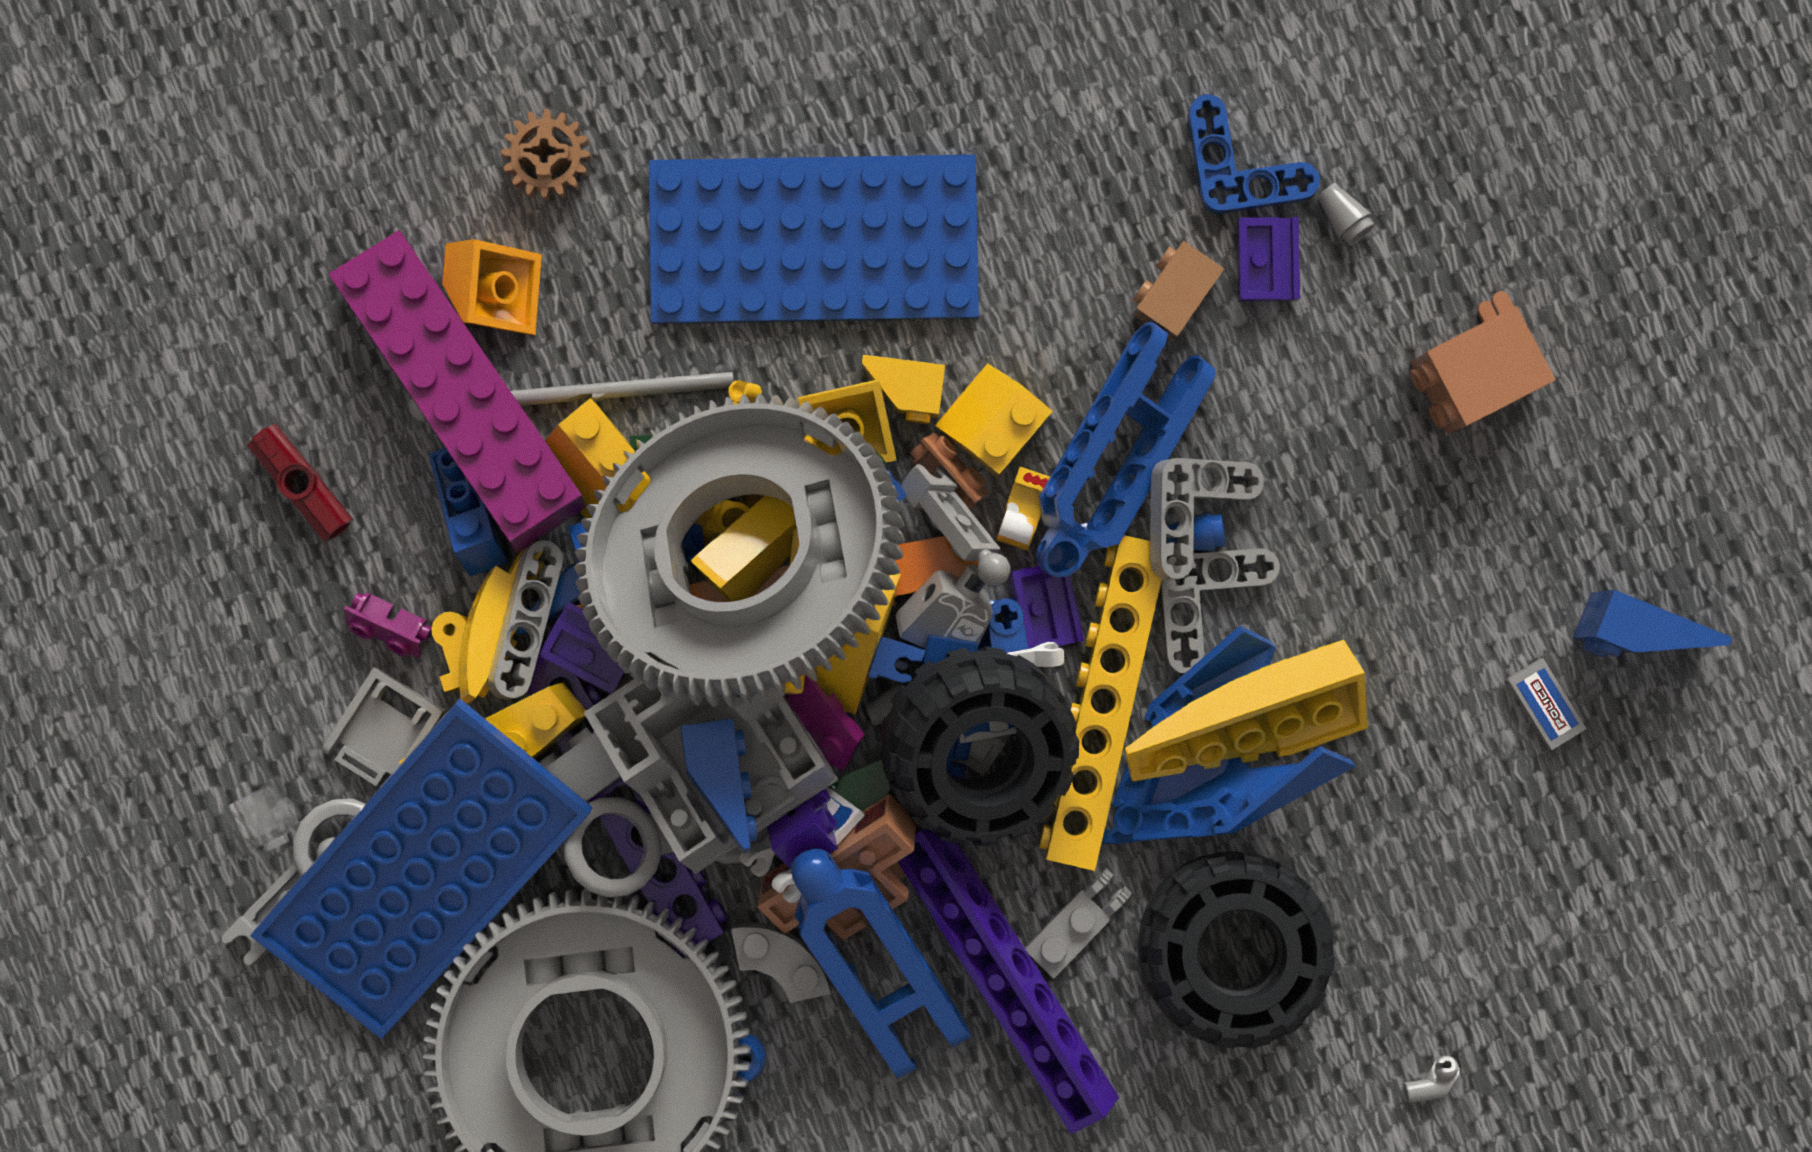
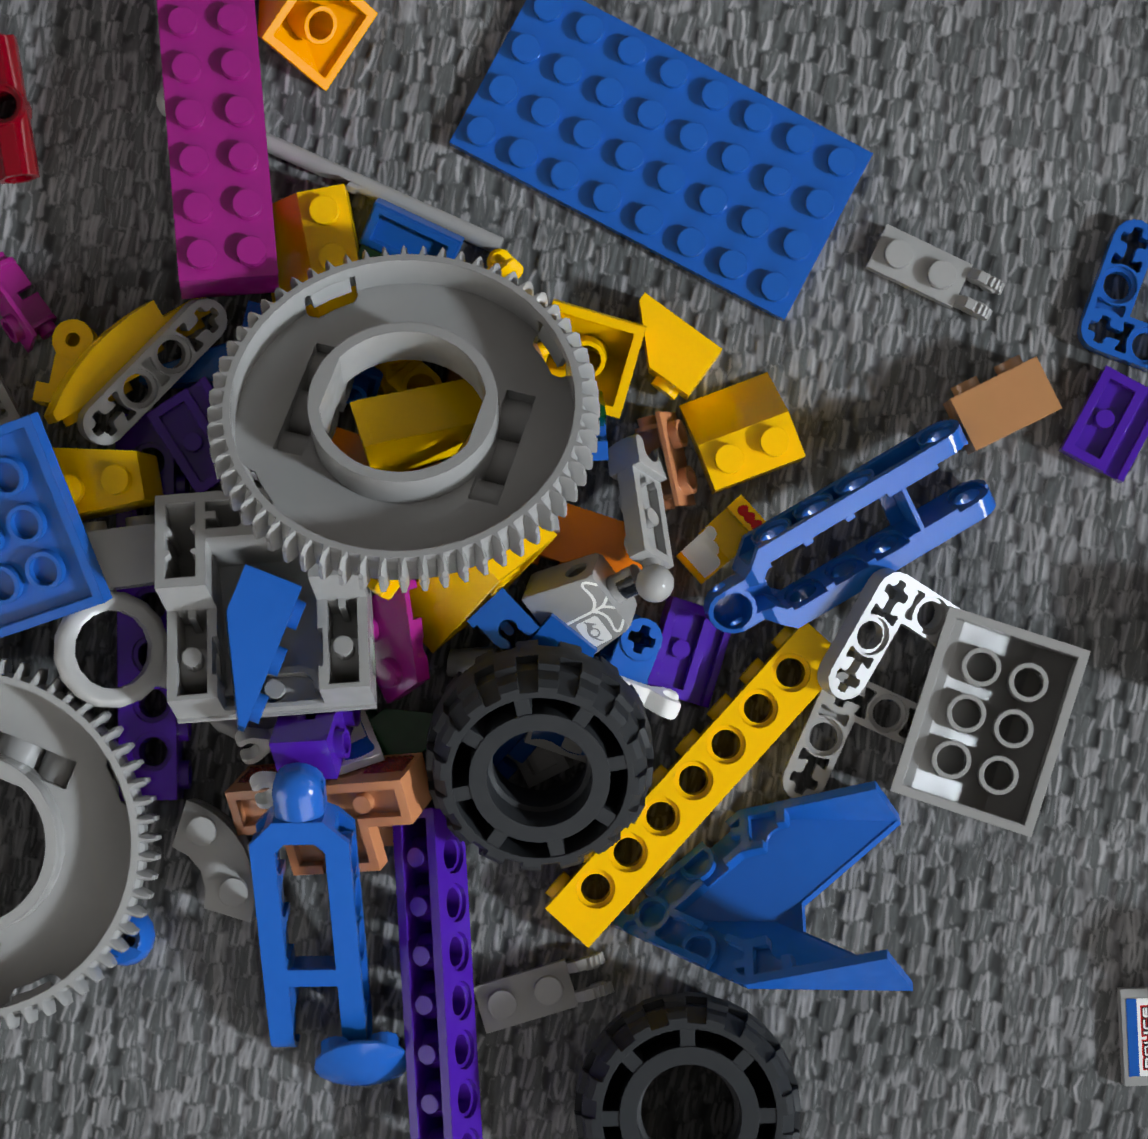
camera: 35 degrees right, 0 degrees up
(470, 526) = (149, 252): blue slope -> none
(649, 409) = (394, 227): none -> blue tile
(972, 1050) = (361, 1060): none -> blue dish
(1068, 220) = (930, 272): none -> light grey hinge
(1207, 532) = (895, 667): blue cone -> none
(1266, 711) = (862, 884): yellow wedge -> none
(1300, 533) = (990, 721): none -> light grey slope

